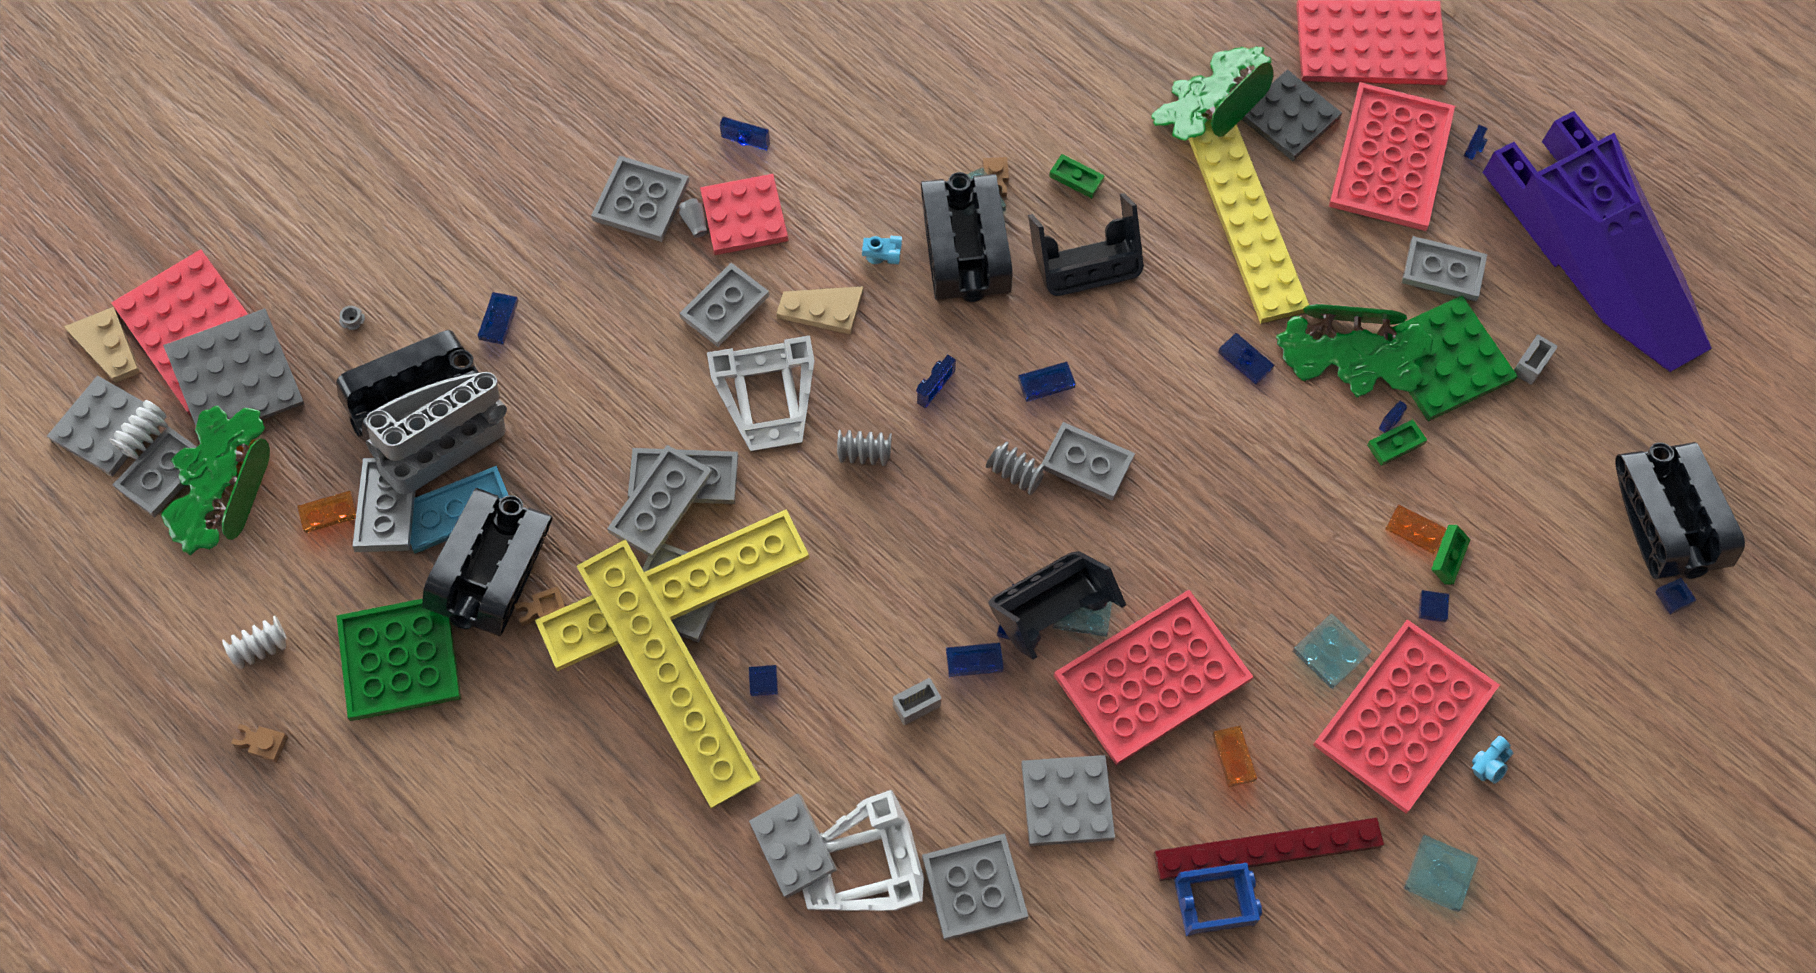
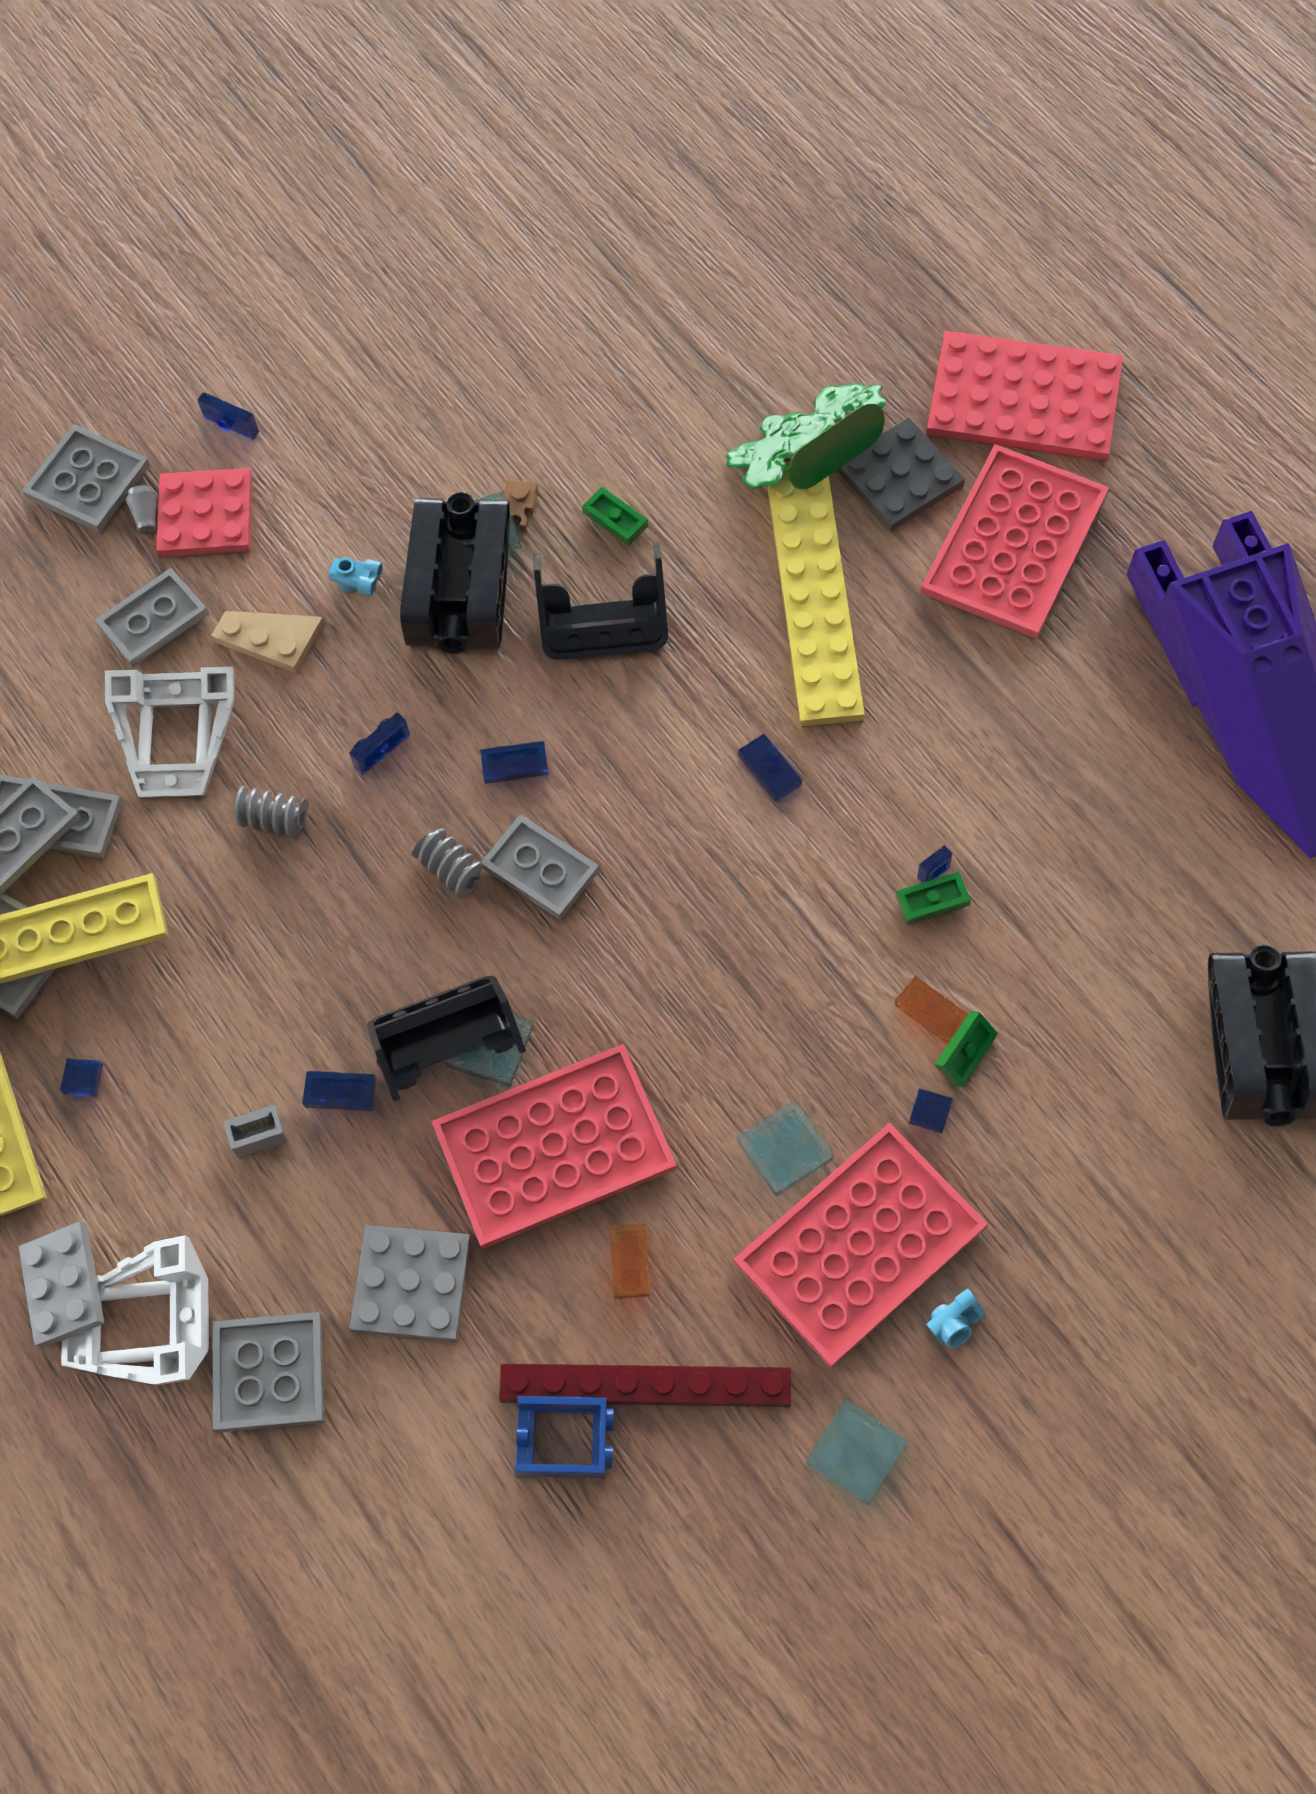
camera: 15 degrees right, 0 degrees up
(1360, 354) = (909, 781): green plant -> none
(1444, 268) = (1047, 688): light grey plate -> none
(1461, 362) = (1022, 801): green plate -> none
(1477, 142) = (1126, 536): clear blue plate -> none
(1535, 359) = (1135, 818): light grey piece -> none
(1675, 596) = (1246, 1145): clear blue plate -> none

